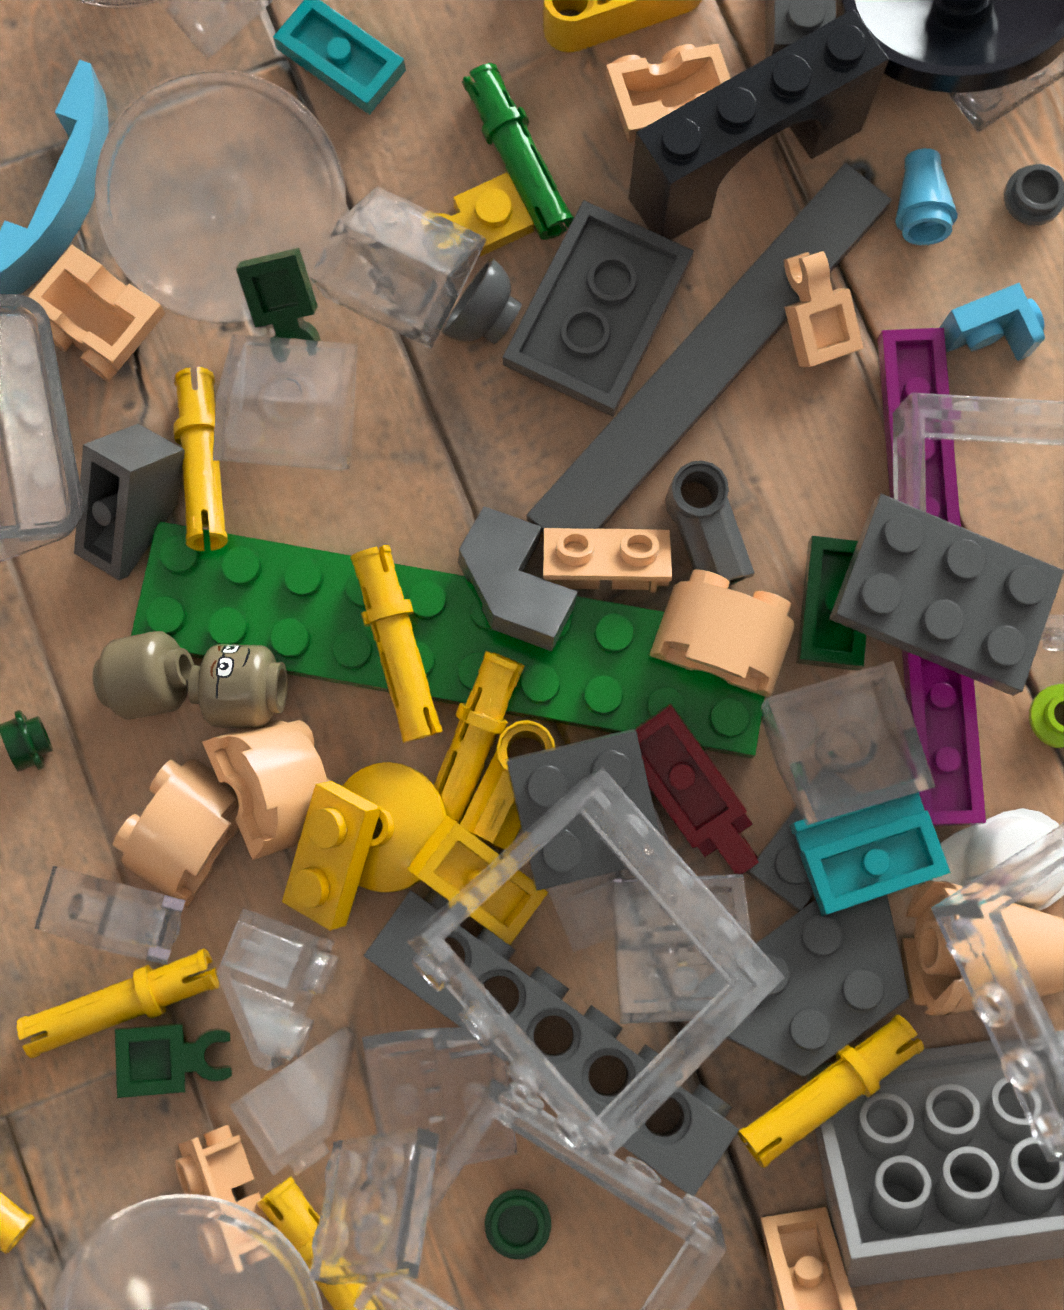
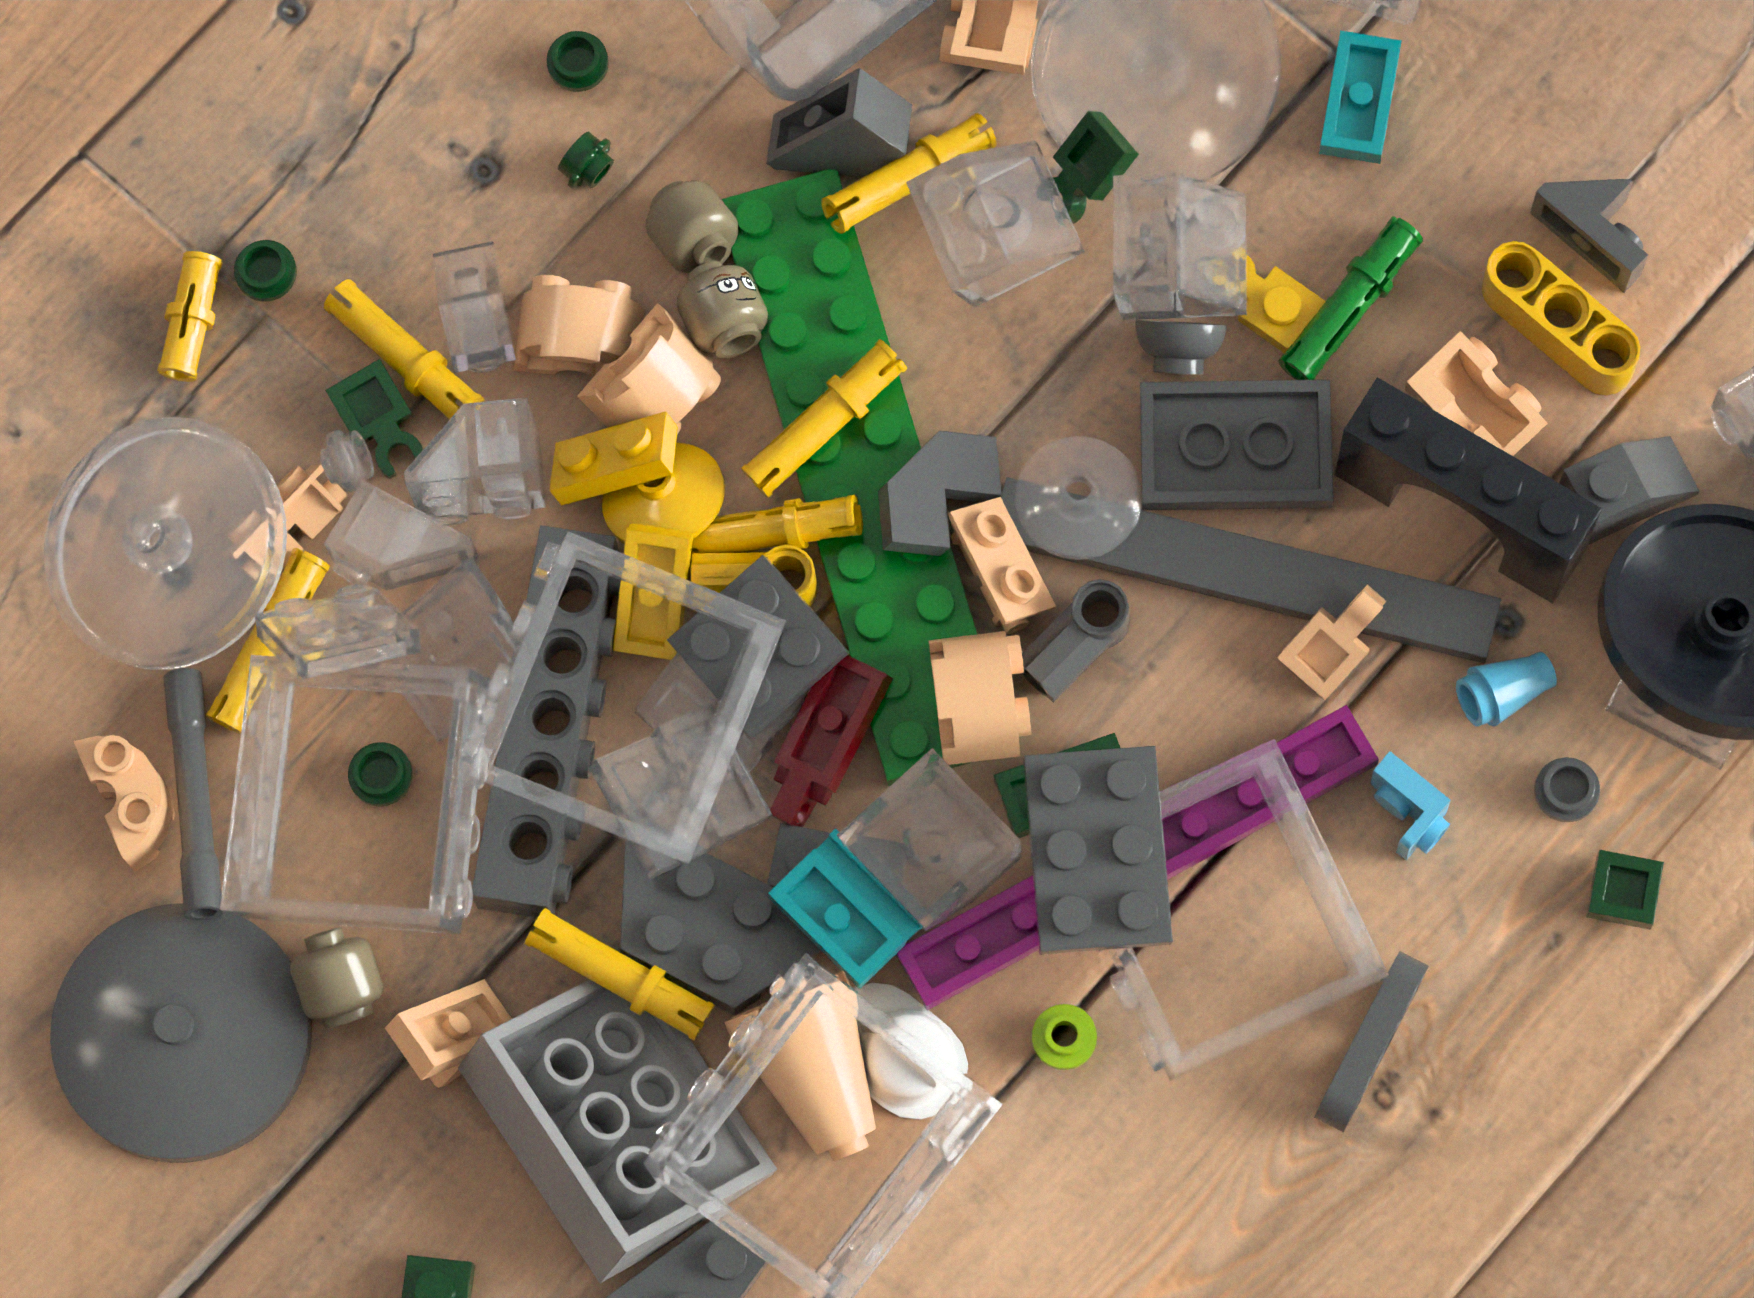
camera: 70 degrees right, 5 degrees down
(199, 1110) = (346, 459): none -> clear plate
(572, 490) = (1082, 526): none -> clear dish

